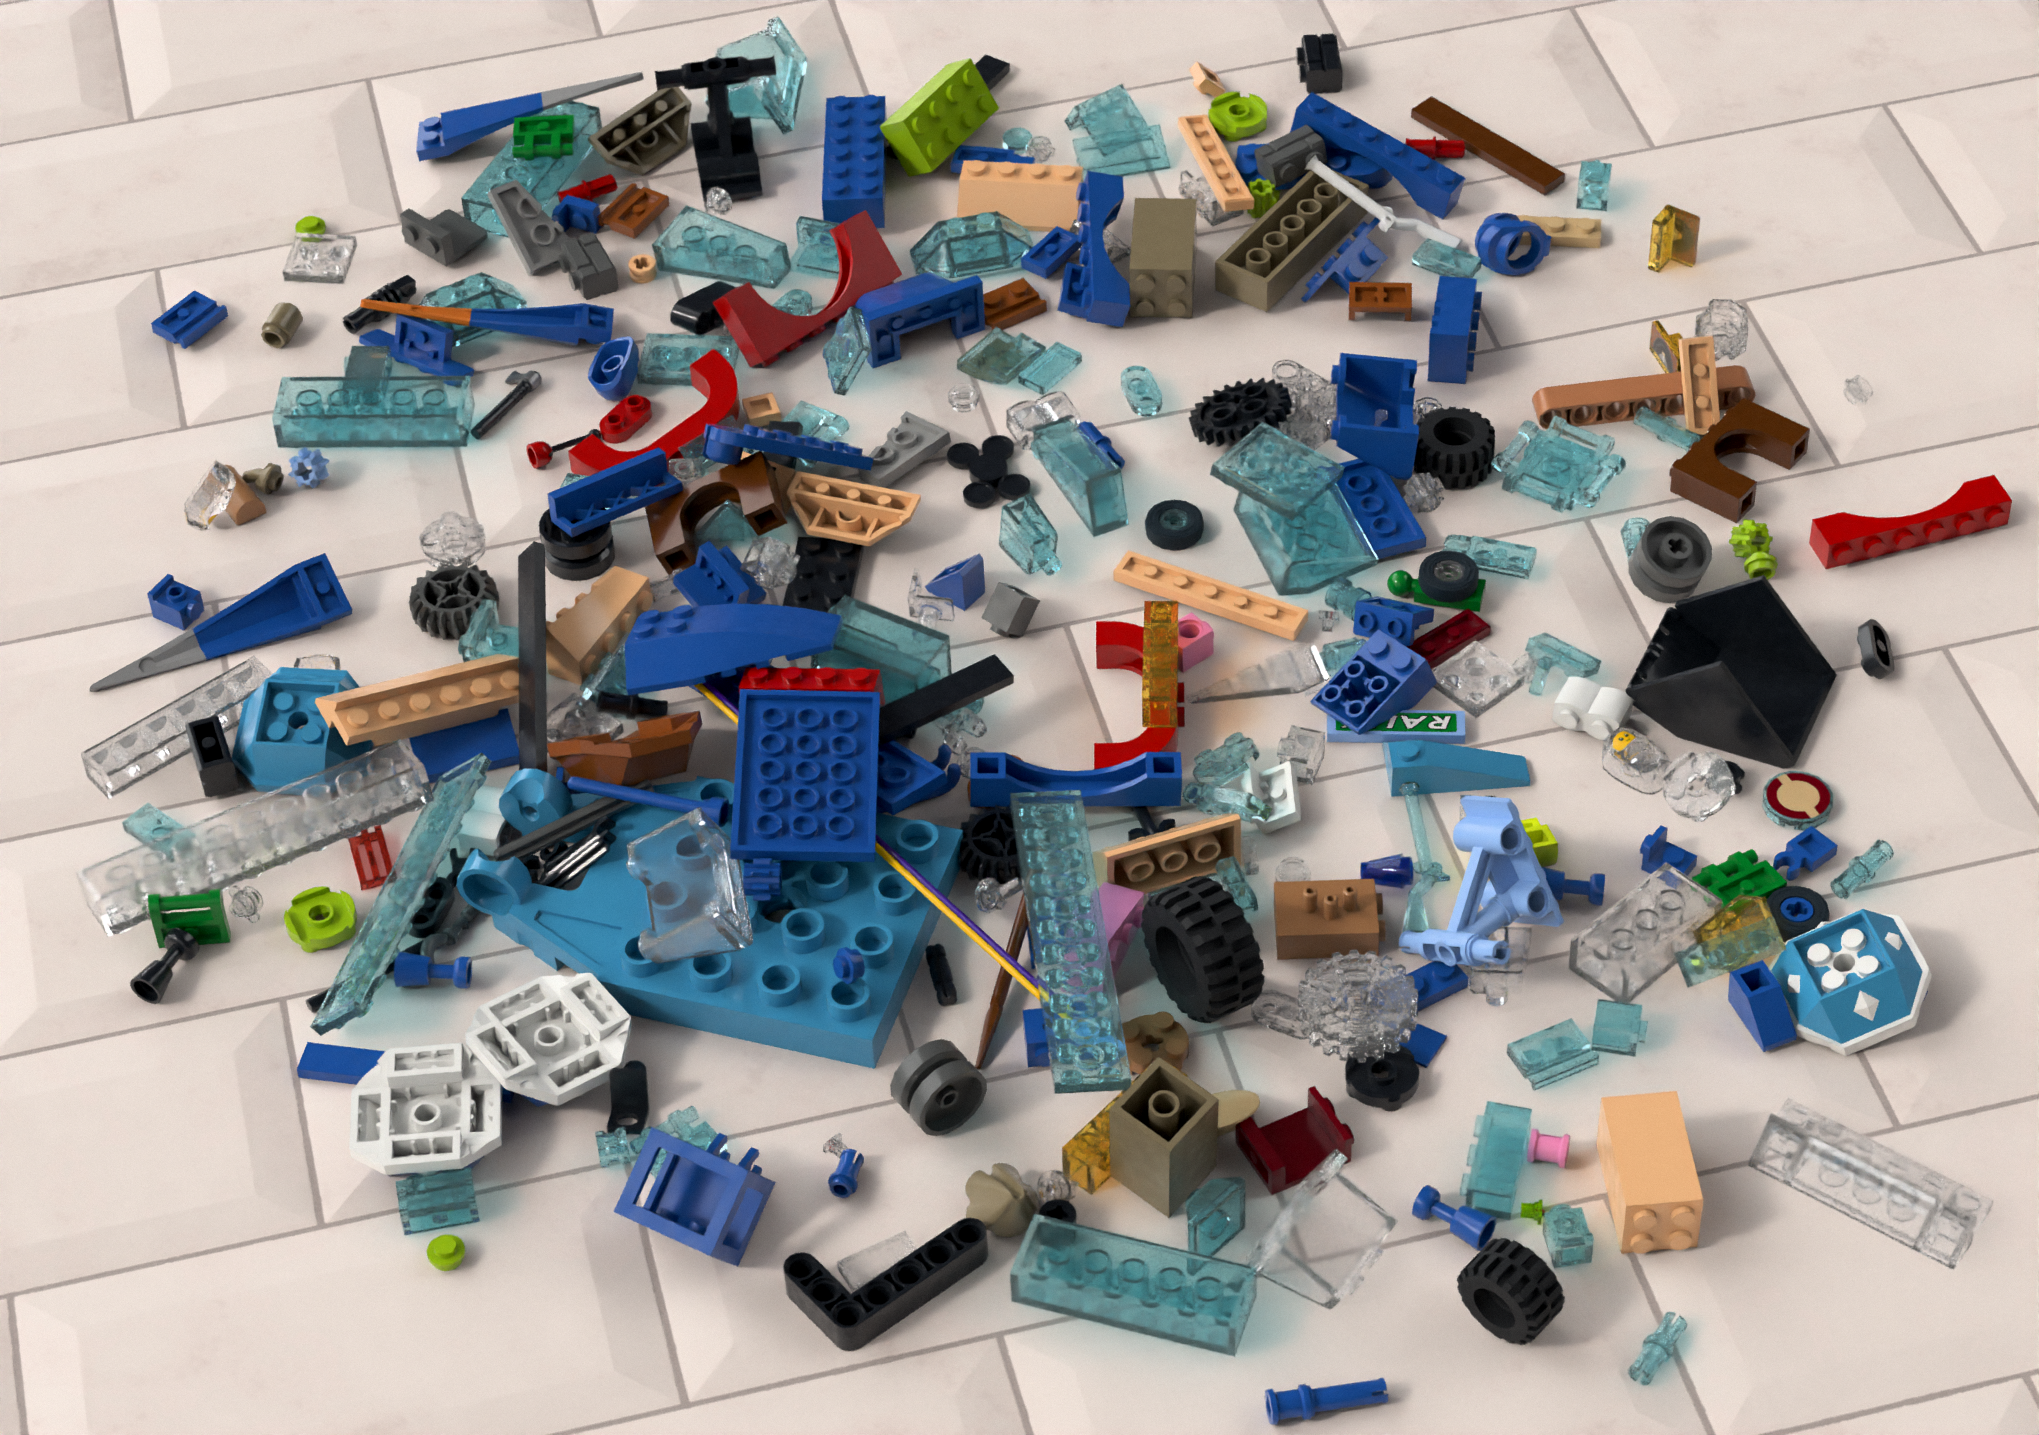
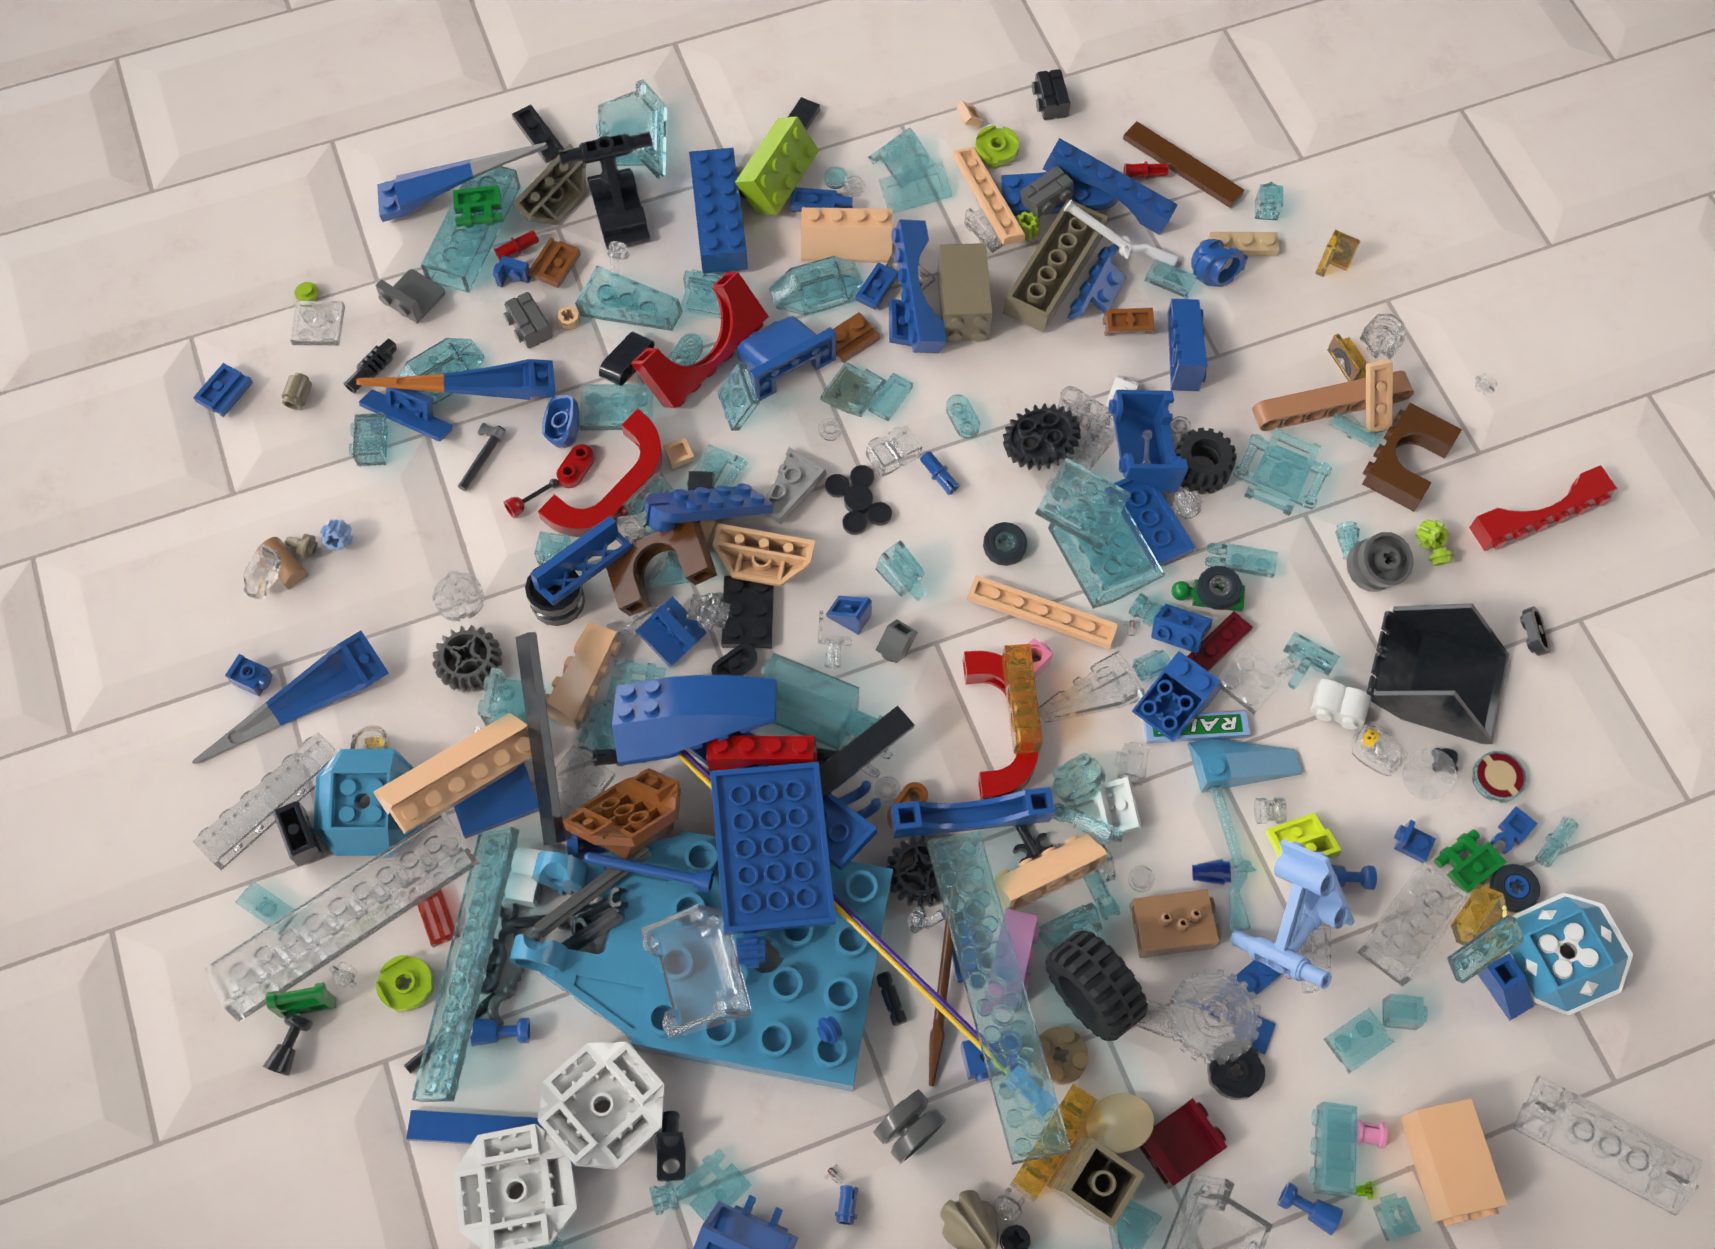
camera: 10 degrees left, 20 degrees up
(374, 411) = (379, 477): clear light blue brick -> none
(528, 226) = (477, 289): light grey wing -> none
(625, 63) = (537, 132): none -> black plate
(1082, 474) = (931, 503): clear light blue wedge -> none

